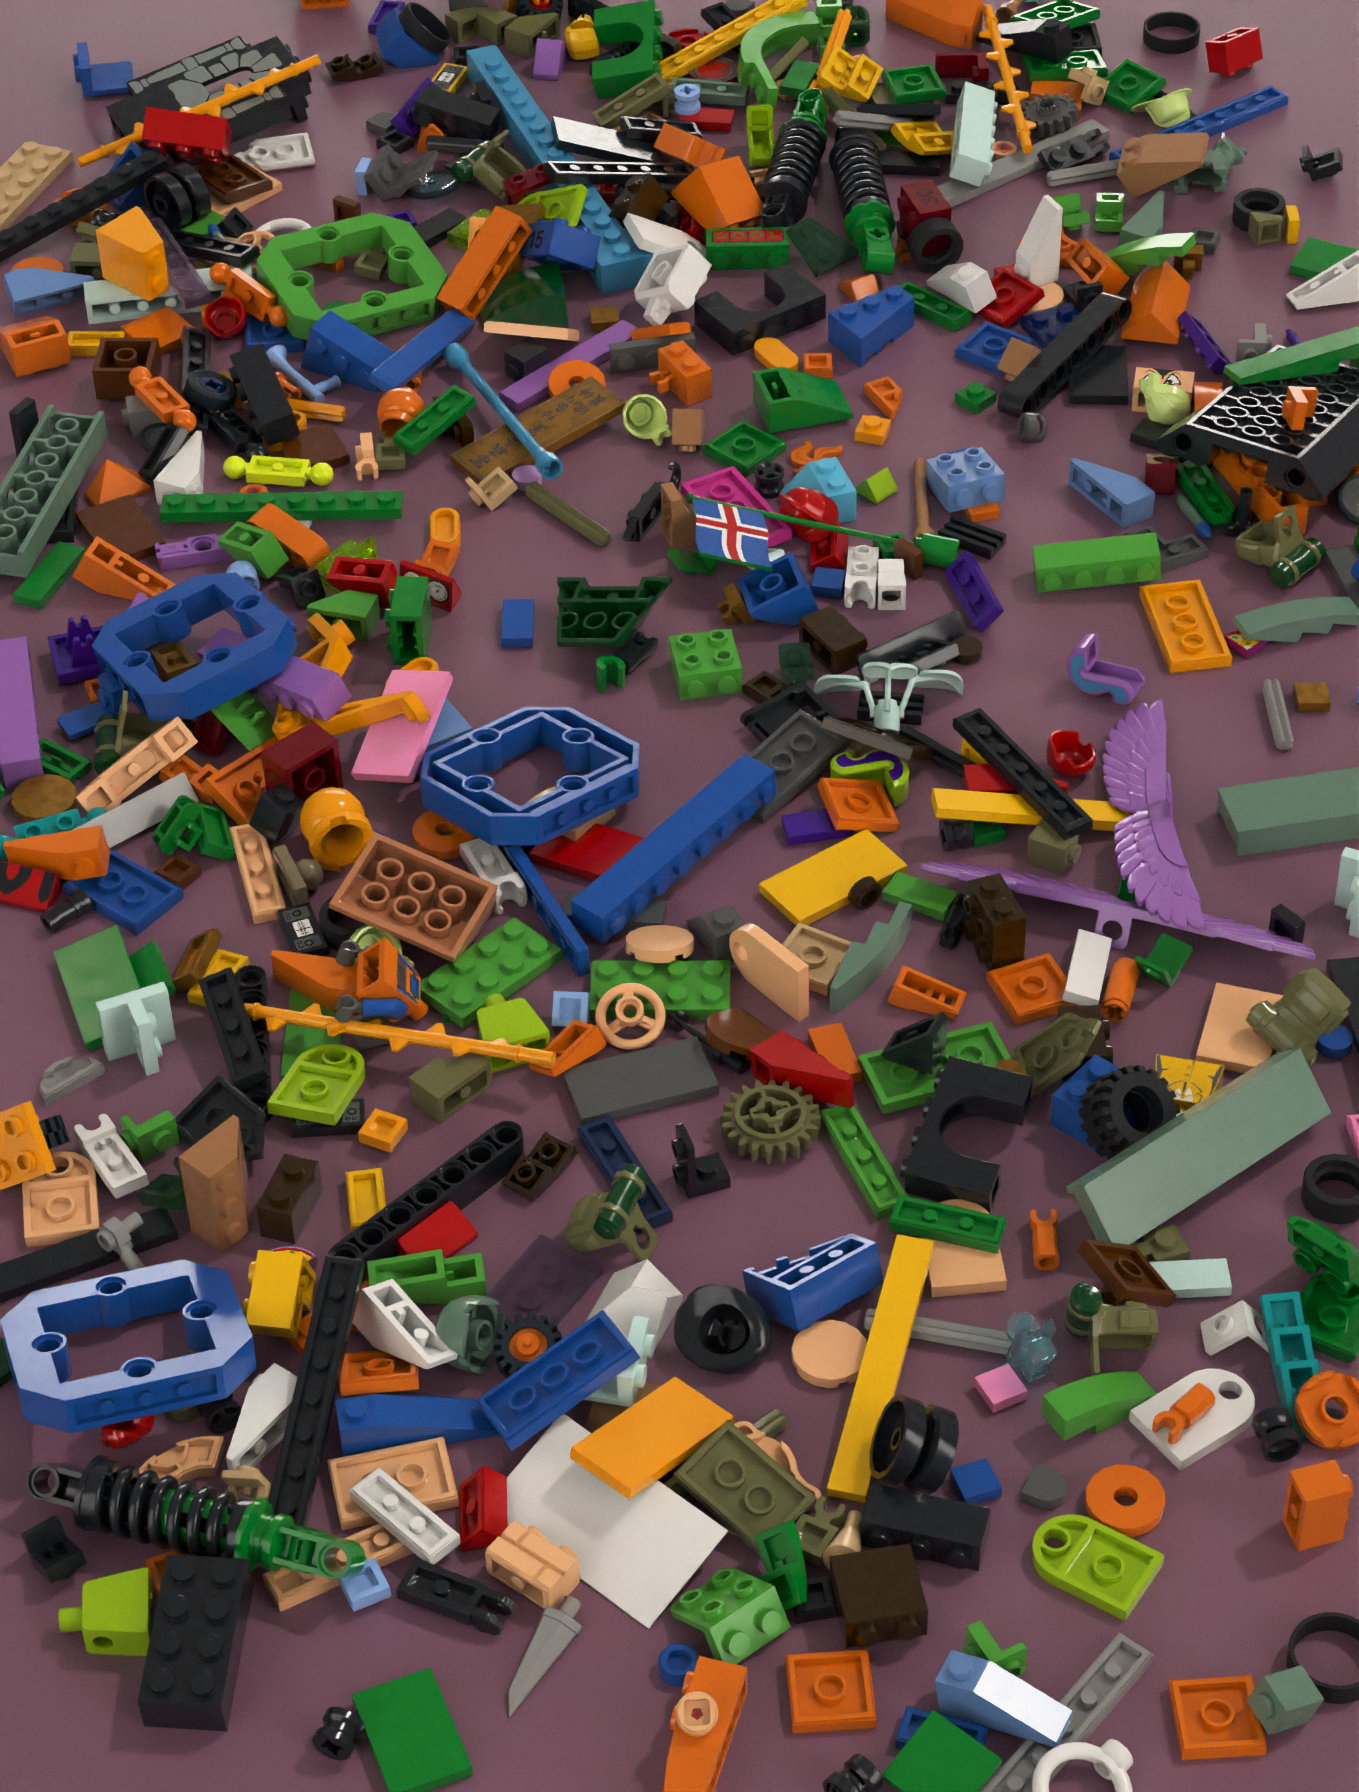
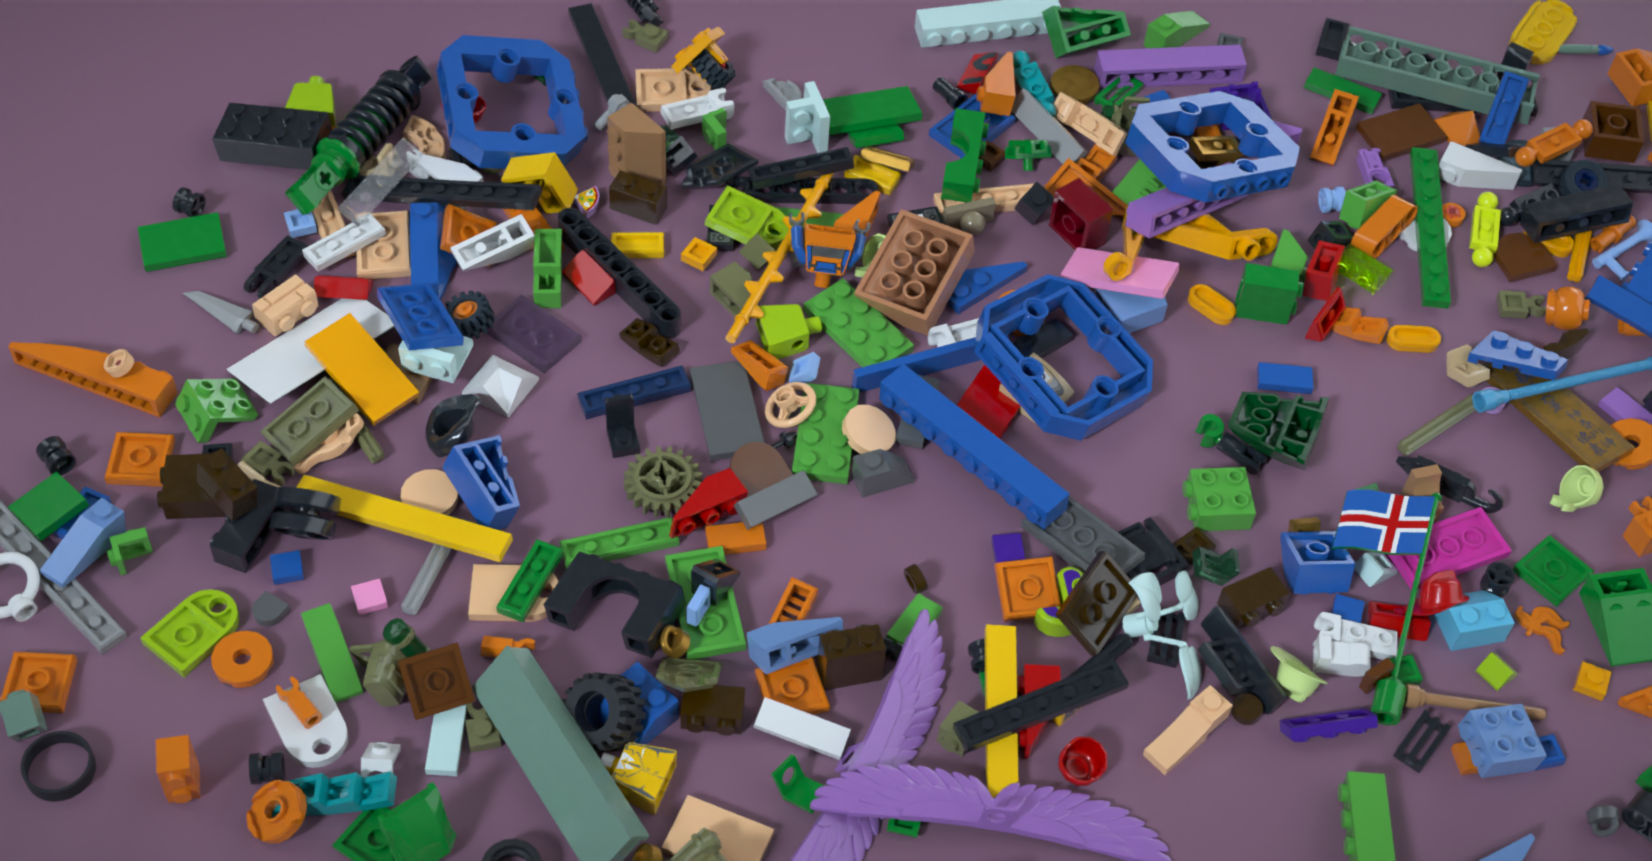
camera: 90 degrees right, 10 degrees up
(52, 1550) = (363, 80): black bracket -> none
(107, 435) = (1504, 108): none -> blue tile
(159, 875) = (960, 175): none -> green arch
(216, 837) = (1027, 171): green tile -> none
(302, 1470) = (380, 182): none -> clear tile
(335, 827) = (1017, 234): light orange tile -> none
(365, 457) = (1506, 283): light nougat plate -> none
(378, 1065) = (754, 250): none -> olive slope
(434, 420) = (1550, 326): green tile -> none
(469, 1329) = (489, 277): sand green cylinder -> none
(475, 447) = (1508, 351): none -> wing
(612, 1216) = (570, 363): olive piece -> none
(675, 1662) = (186, 373): blue tile -> none
(688, 429) = (1570, 519): medium nougat arch -> none
(772, 969) = (818, 492): light nougat tile -> none
(781, 1013) = (775, 500): none -> tile
(784, 1563) = (232, 434): green slope -> none
(820, 951) = (848, 538): tan tile -> none
(824, 880) = (949, 568): yellow tile -> none
(868, 961) = (828, 566): sand green slope -> none
(897, 1521) = (227, 484): none -> dark brown brick
(928, 607) = (1295, 676): none -> yellowish green piece
(959, 1047) = (698, 605): none -> light blue tile
(987, 988) = (788, 642): none -> medium blue slope
(1006, 684) = (1188, 730): none -> light nougat slope
(1030, 1345) = (384, 608): clear light blue hips -> none
(1102, 677) = (1197, 809): medium lavender animal -> none
(1120, 989) = (773, 749): orange piece -> none

